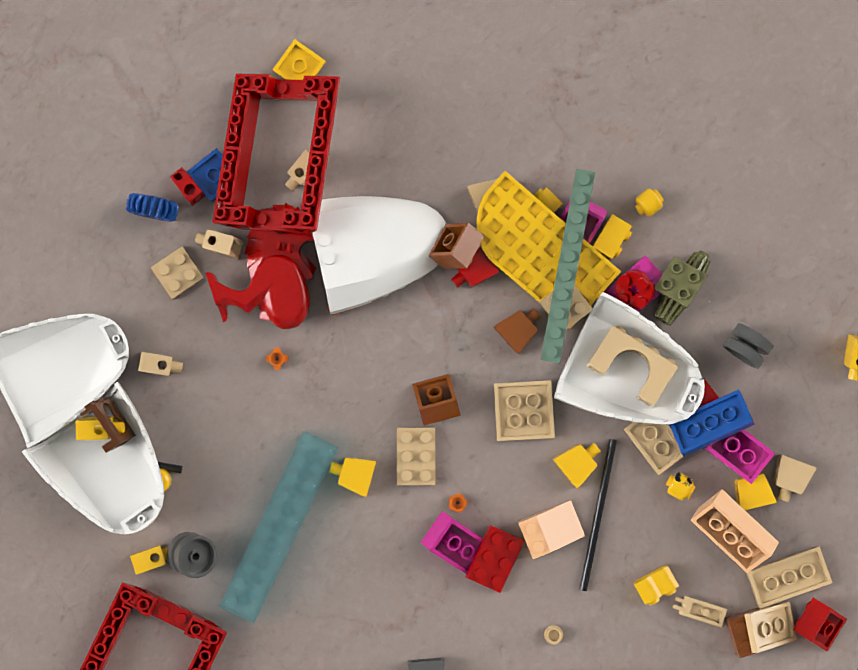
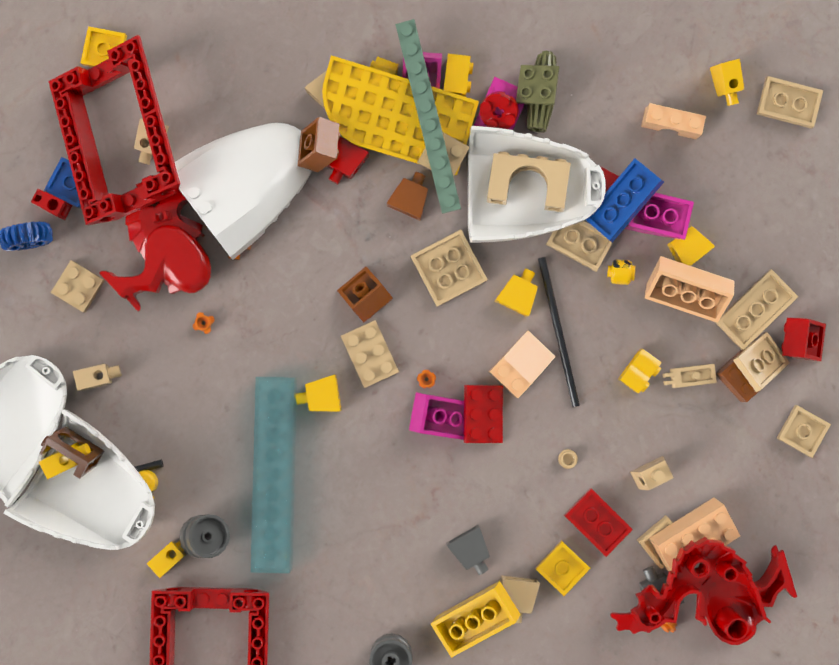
camera: 20 degrees left, 0 degrees up
(220, 243) = (104, 241): tan torso -> none
(649, 202) = (476, 29): yellow head -> none
(748, 346) = (625, 116): dark grey wheel -> none
(791, 476) = (717, 217): tan torso -> none
(795, 371) = (684, 122): none -> light nougat arch

